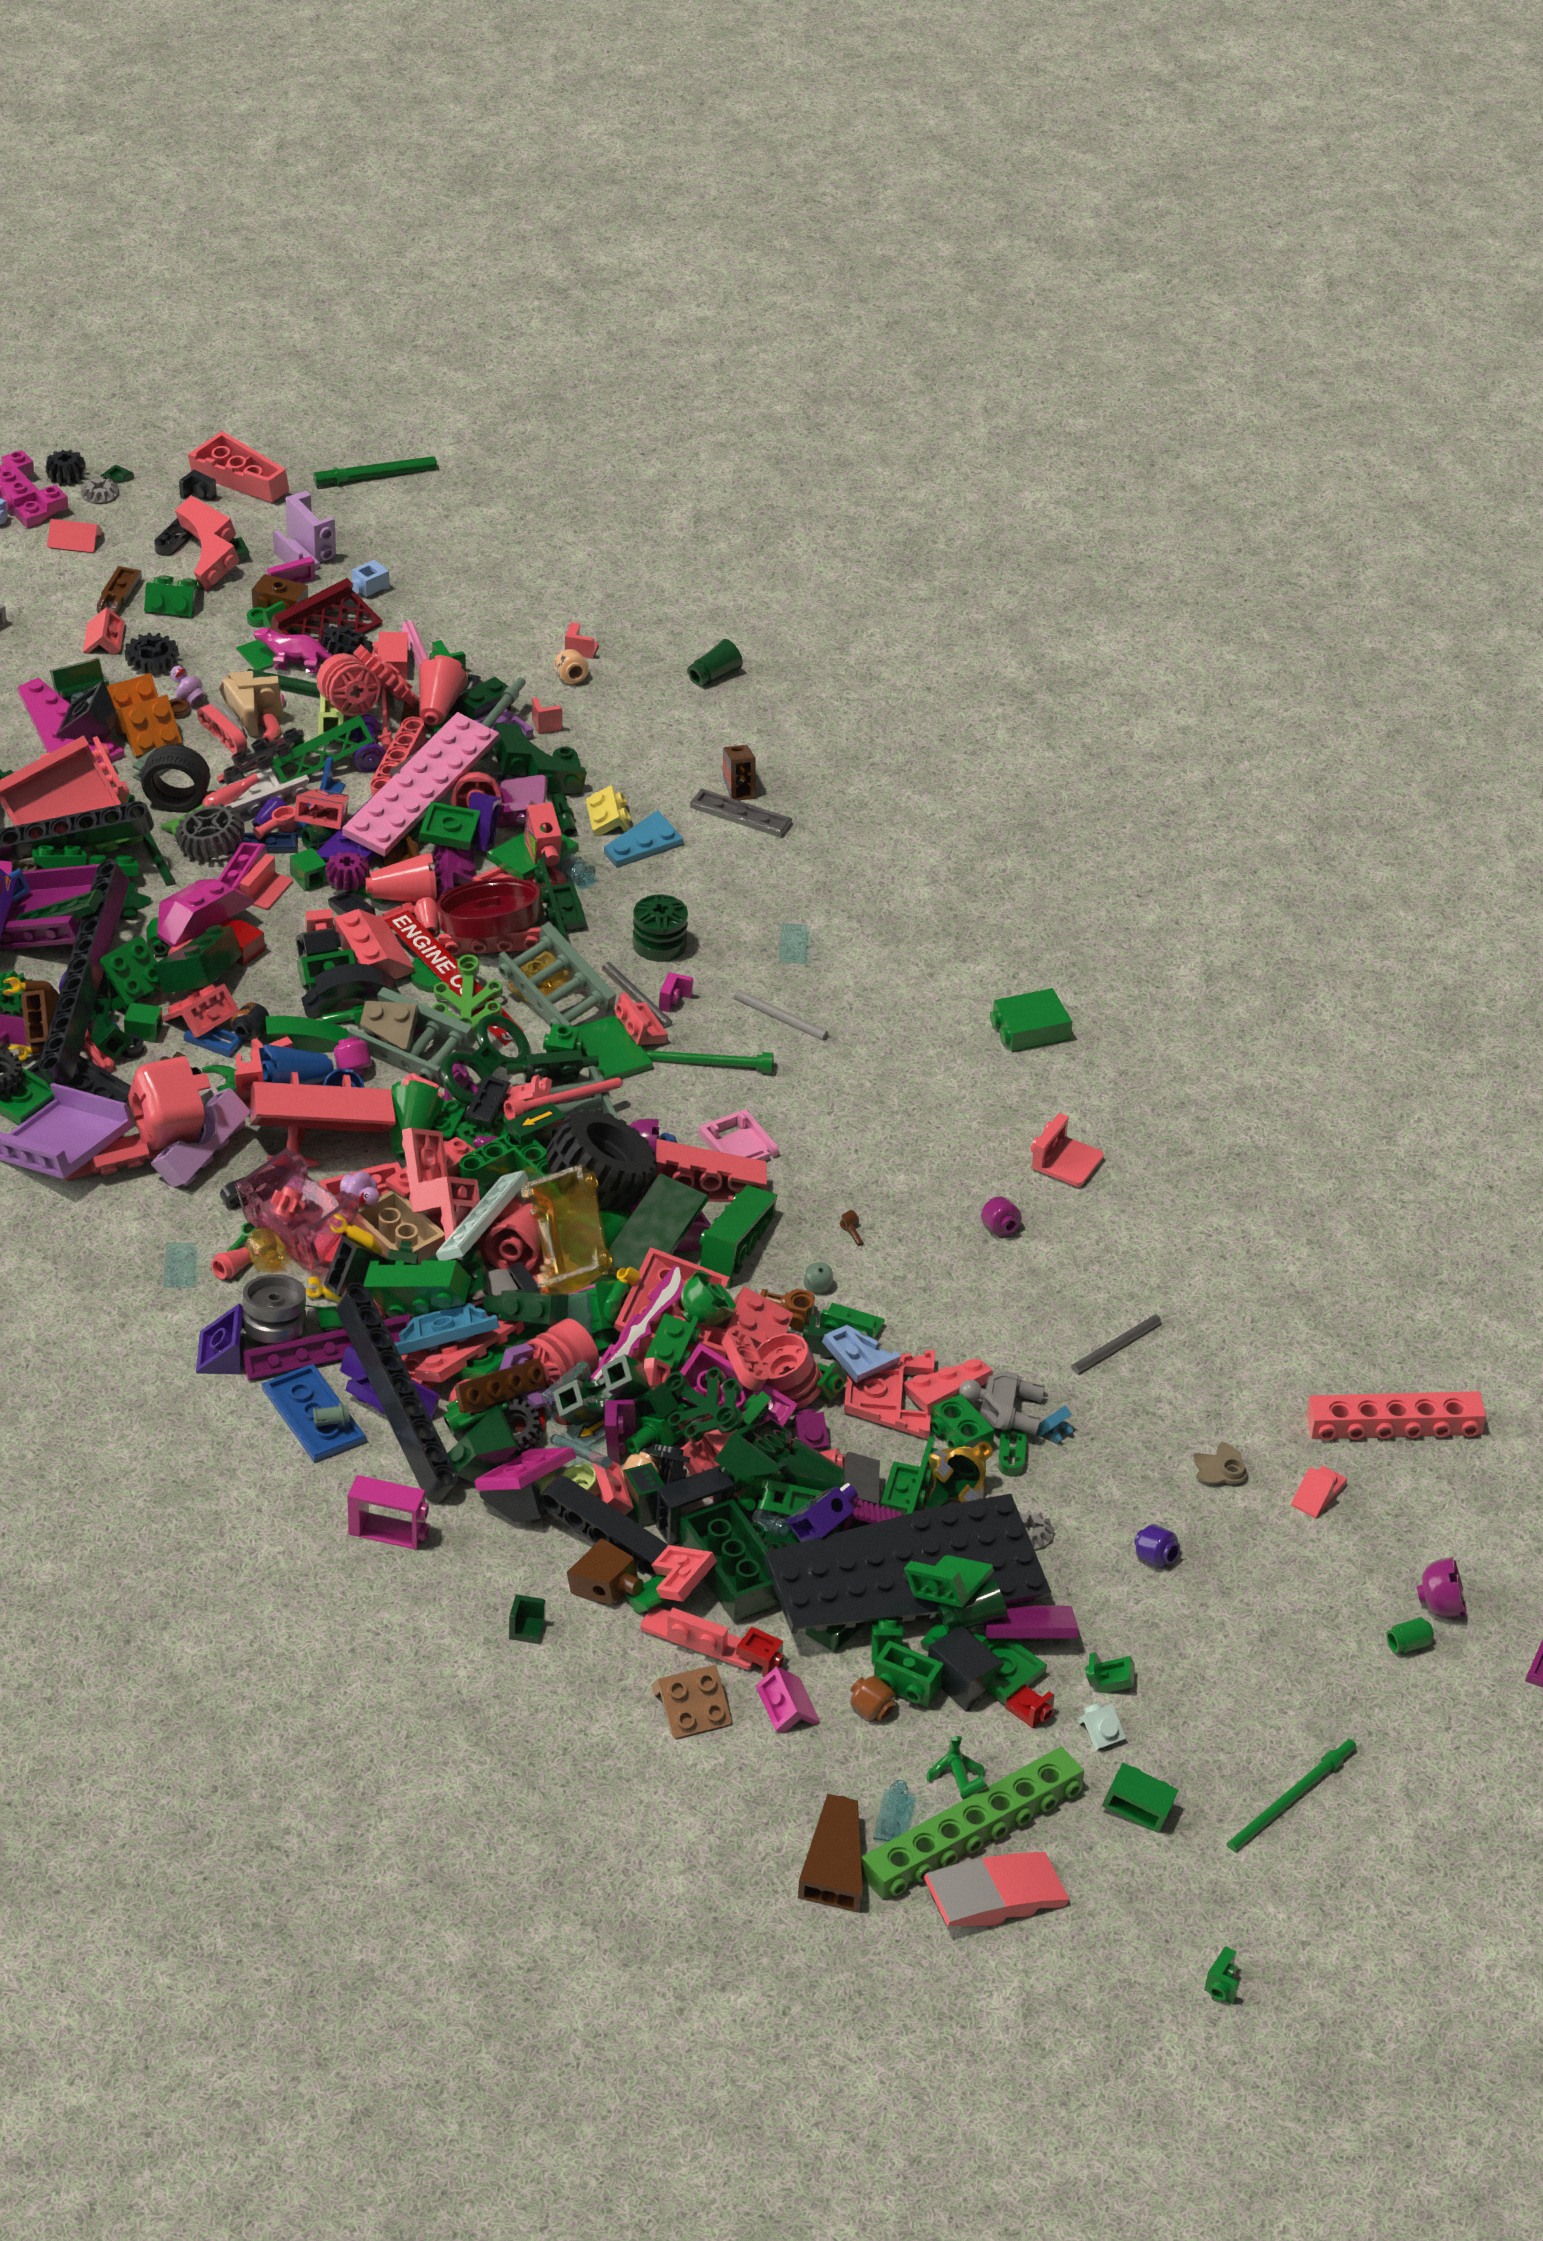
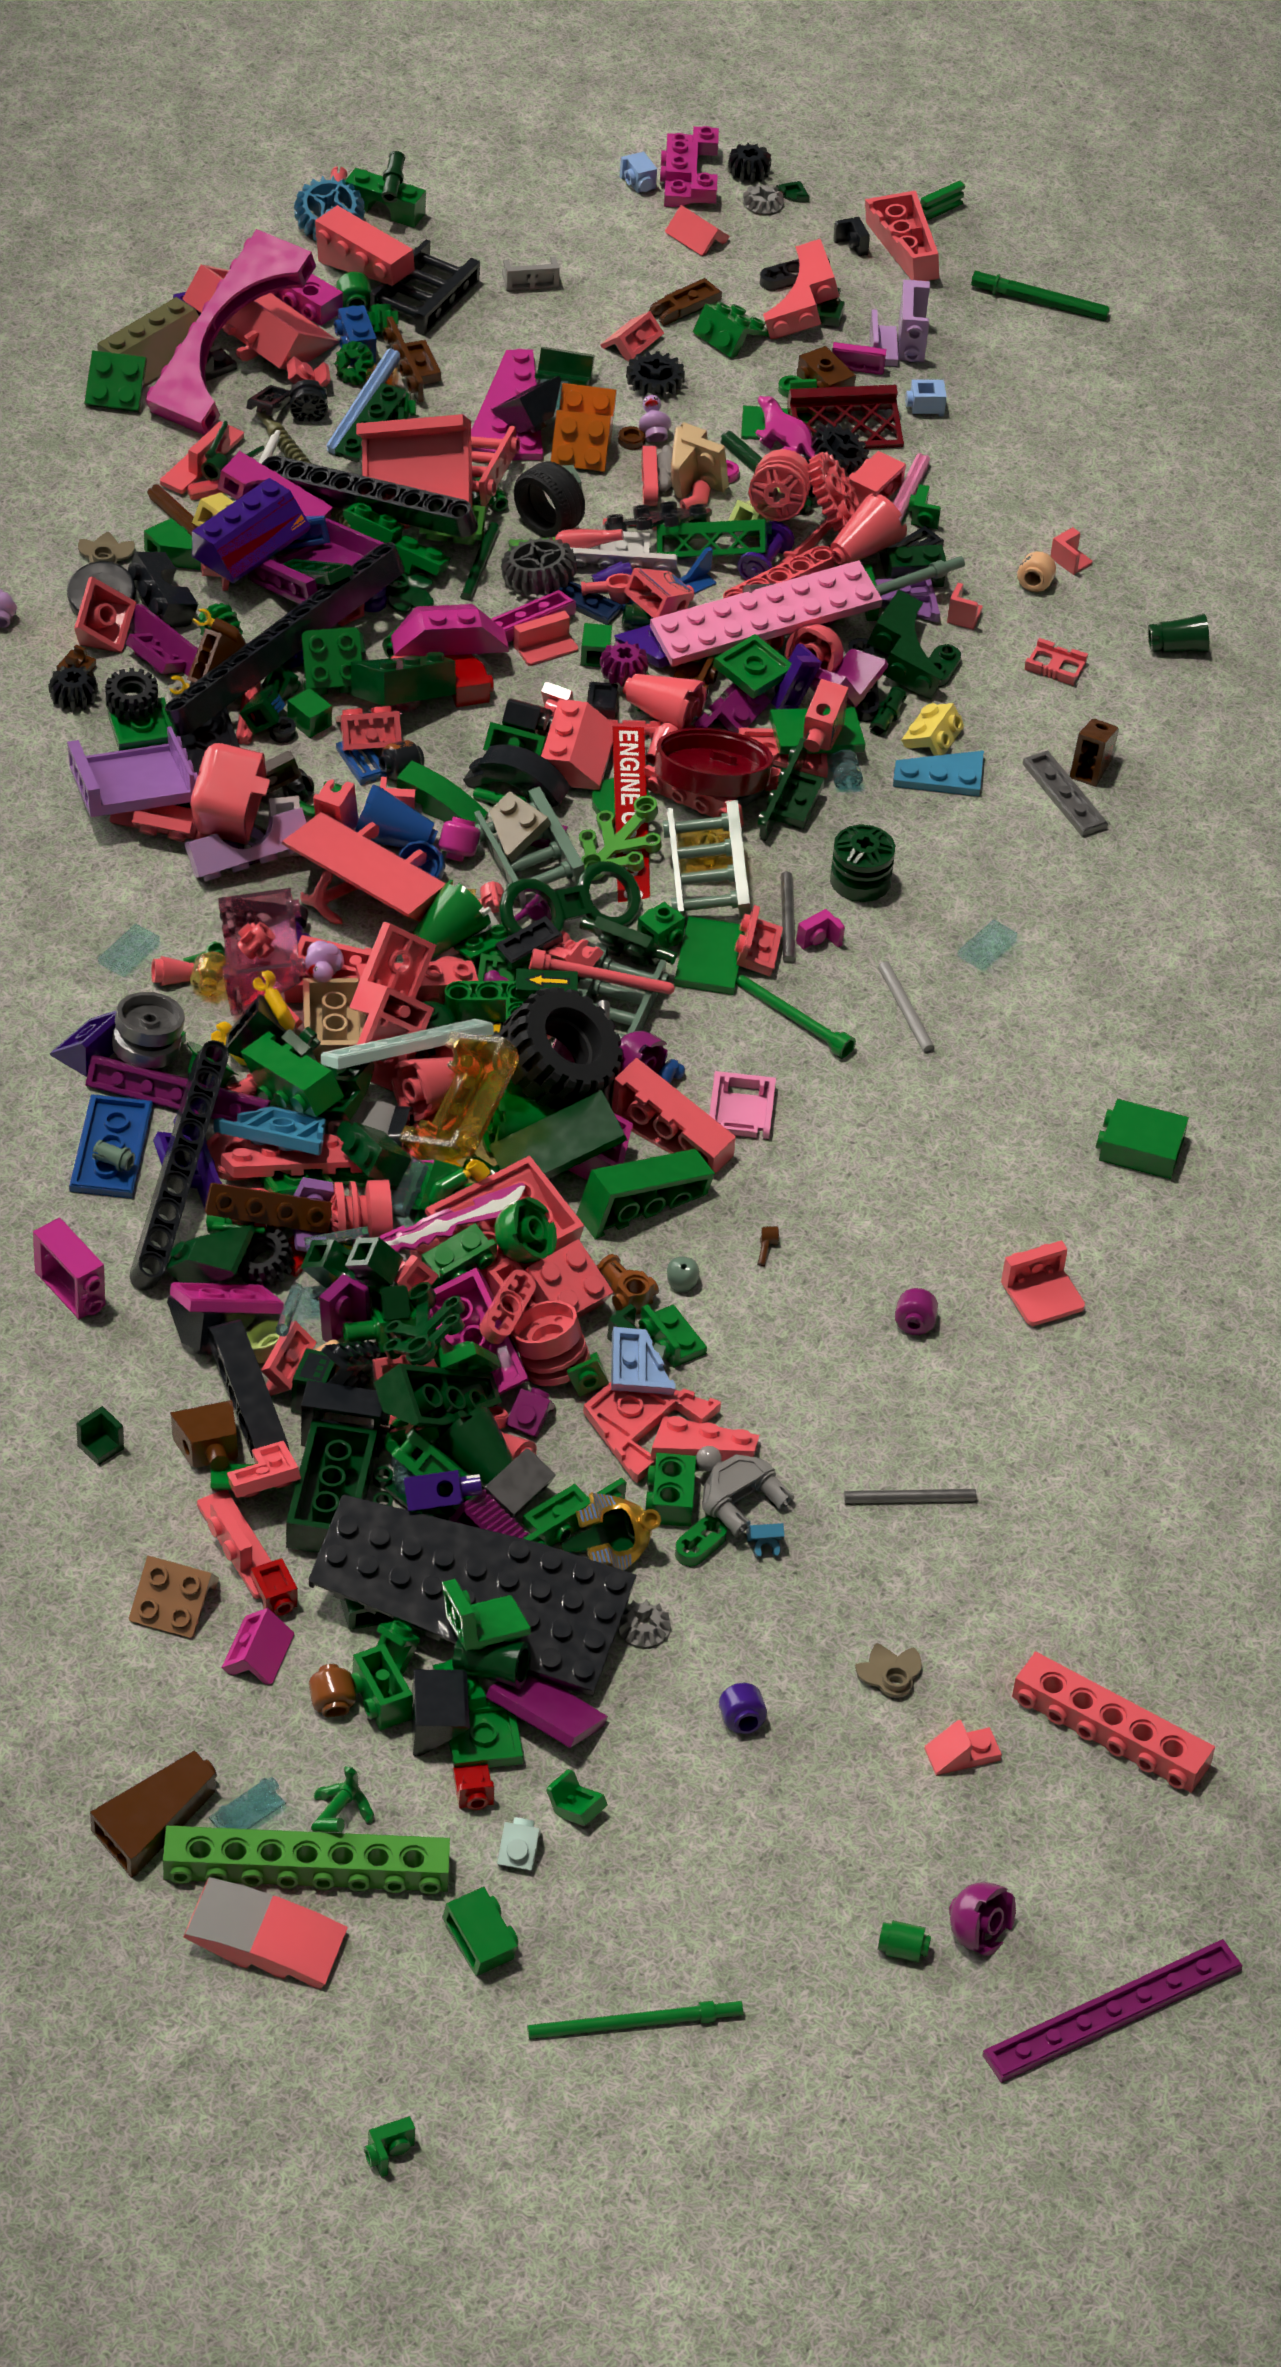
camera: 35 degrees right, 5 degrees up
(240, 427) = (942, 200): none -> green tile
(643, 720) = (1059, 656): none -> coral piece

